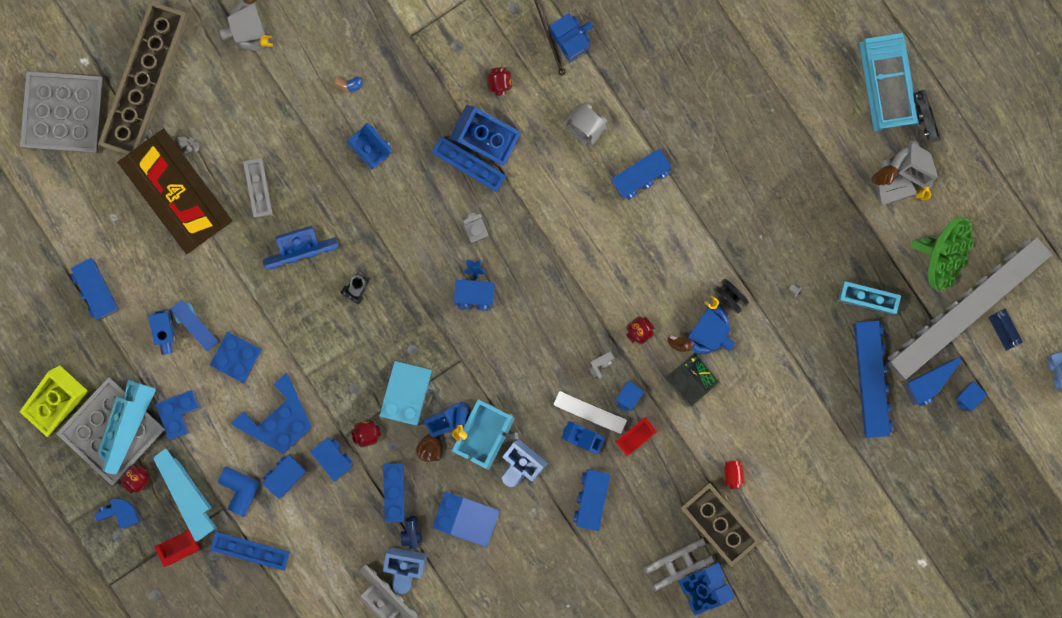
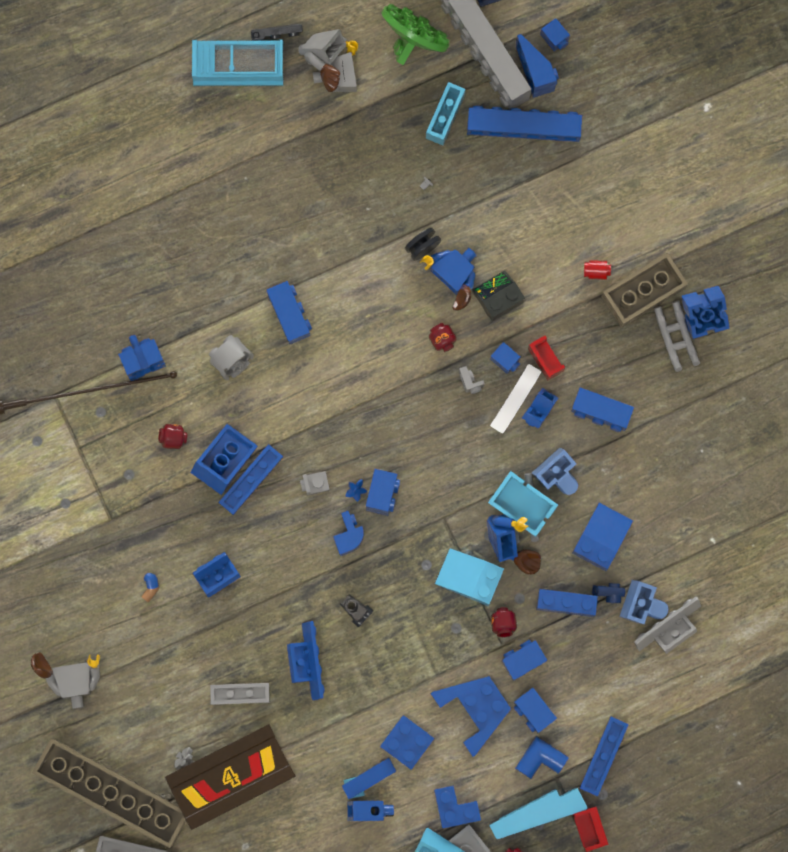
camera: 80 degrees left, 5 degrees down
(424, 272) = (350, 540): none -> blue brick

